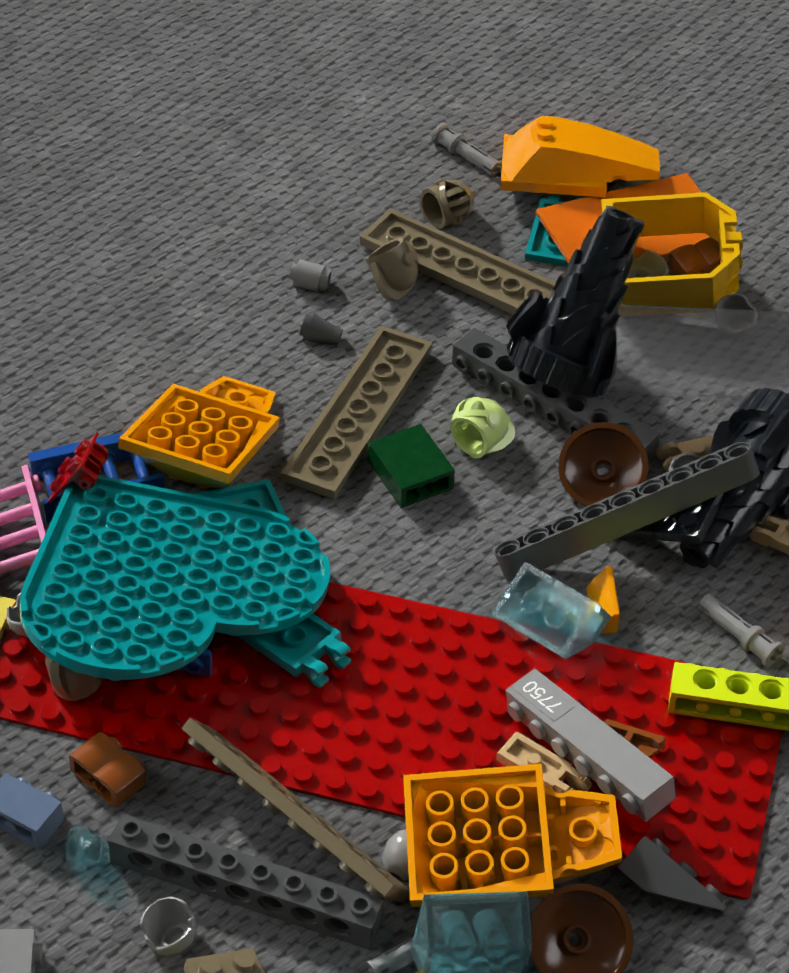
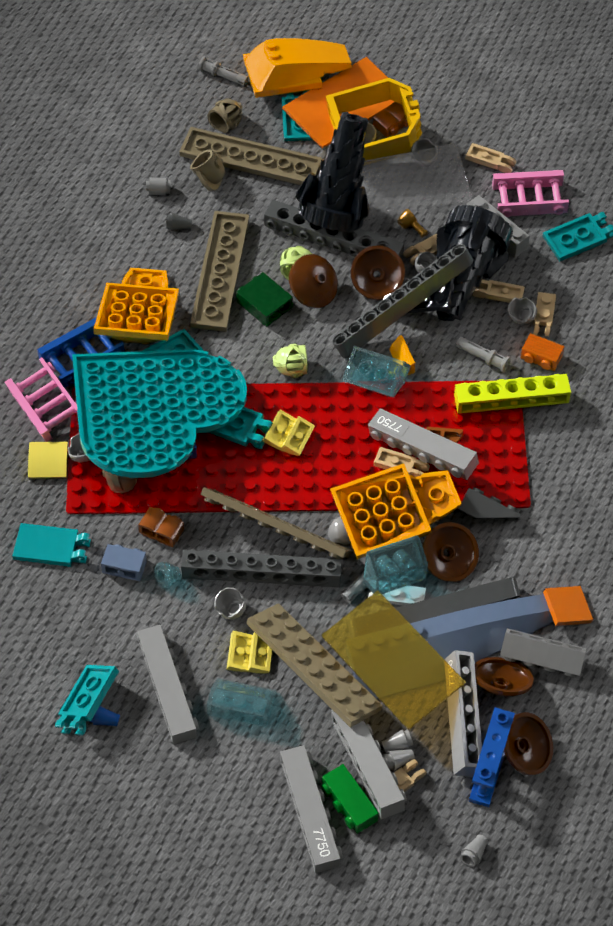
camera: 15 degrees left, 10 degrees up
(82, 468) = (75, 351): red hinge -> none
(373, 673) = (288, 433): none -> light yellow slope
(420, 564) = (291, 360): none -> yellowish green helmet
(482, 460) = (306, 284): none -> reddish brown dish
(678, 405) = (408, 219): none -> pearl gold bar

